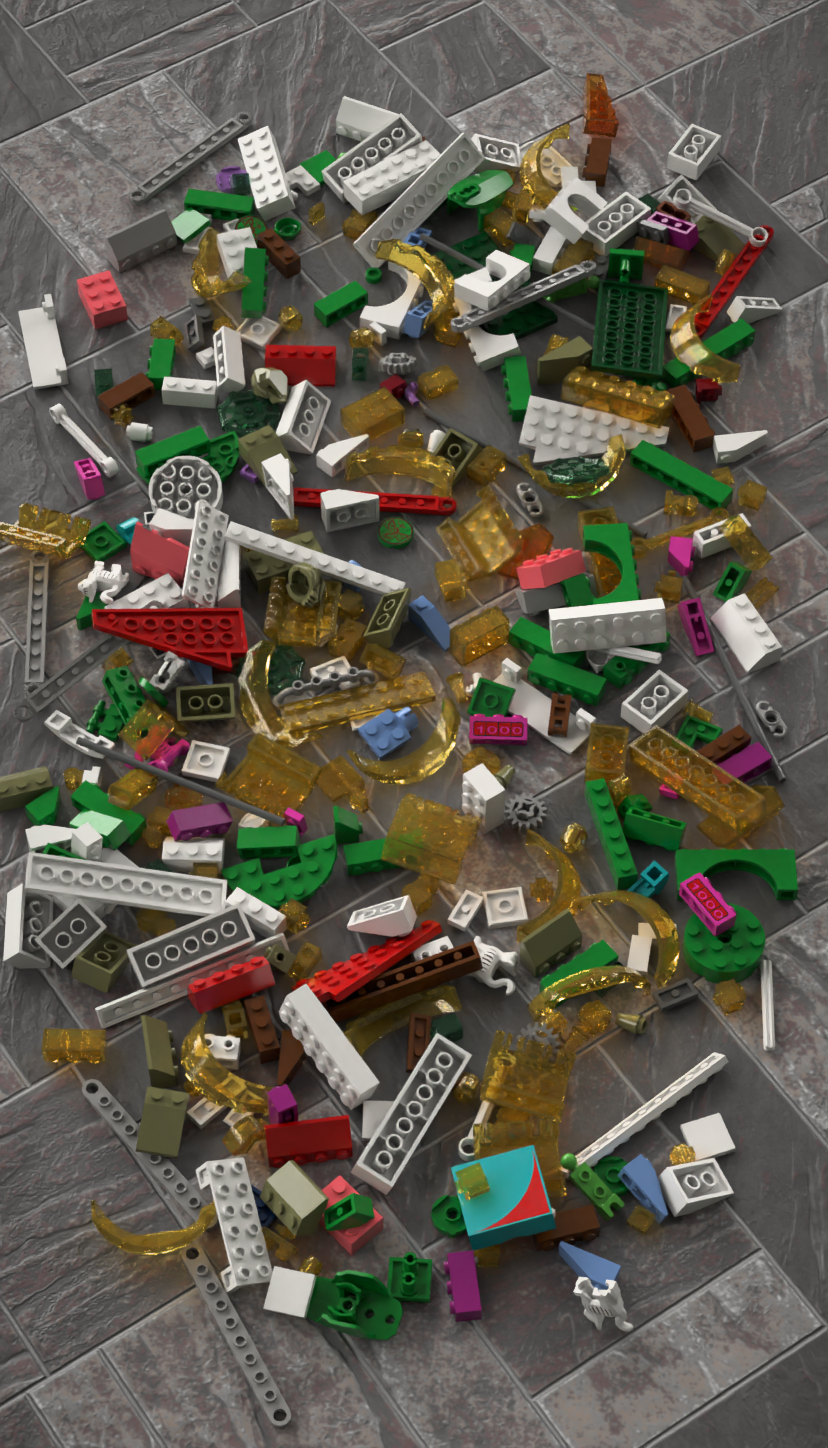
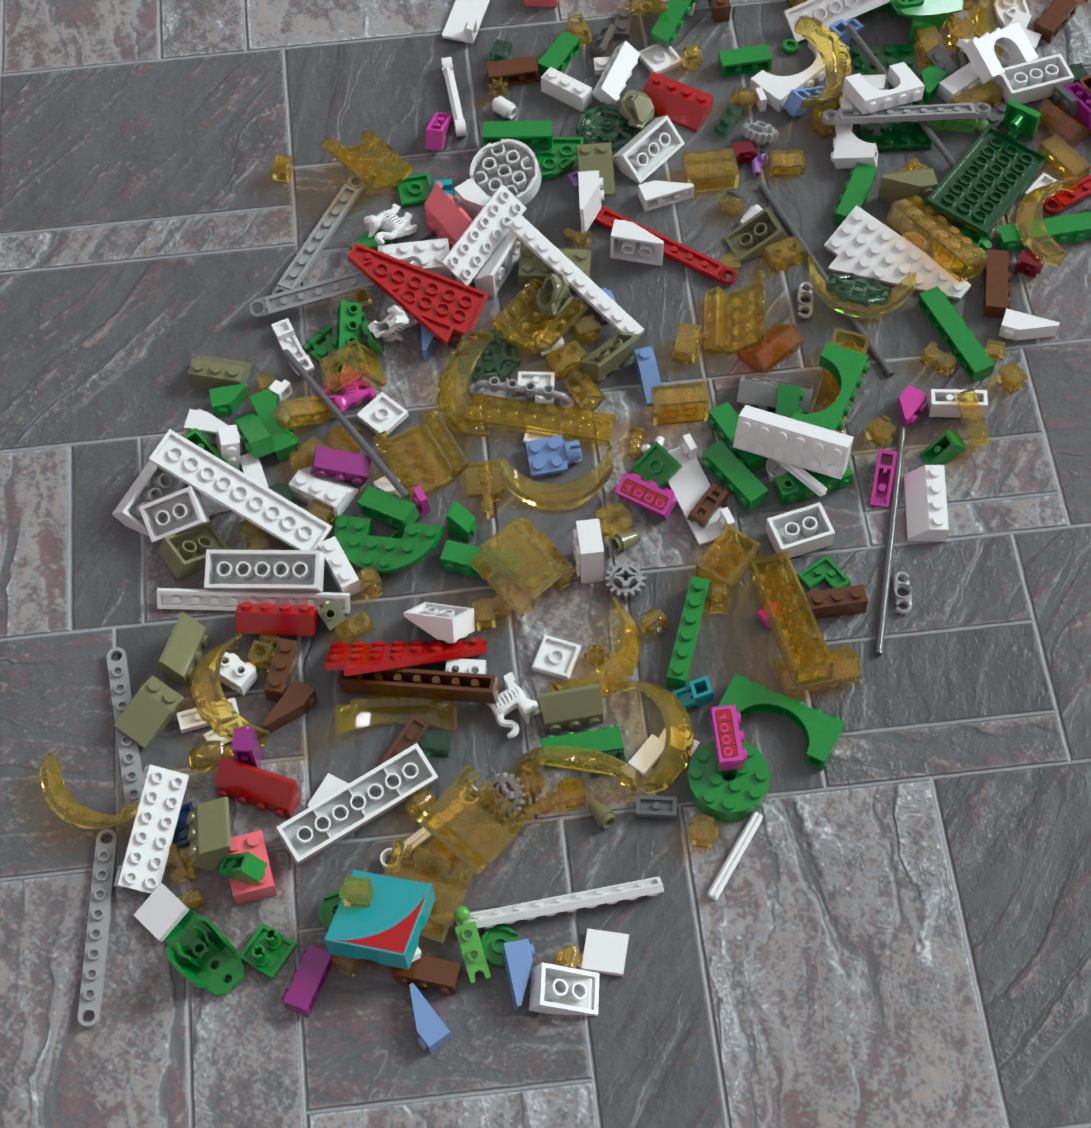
camera: 30 degrees right, 5 degrees up
(74, 1045) = (124, 612): clear yellow brick -> none
(205, 702) = (410, 364): olive slope -> none
(223, 321) = (631, 39): clear yellow gear -> none
(328, 1047) = (319, 712): white brick -> none
(395, 532) = (668, 282): green tile -> none
(402, 461) = (706, 217): clear yellow windscreen -> none
(465, 910) = (519, 644): white plate -> none
(550, 568) = (778, 369): coral brick -> none
(602, 1303) = (410, 1057): white animal -> none
(636, 801) = (727, 617): green bracket -> none
(641, 1219) = (498, 998): clear yellow plate -> none
(654, 829) = (728, 646): green brick -> none
(678, 532) = (901, 384): clear yellow piece -> none
(697, 711) = (836, 554): clear yellow pin -> none
(748, 763) = (847, 624): magenta brick -> none
(757, 588) = (961, 469): clear yellow tile -> none

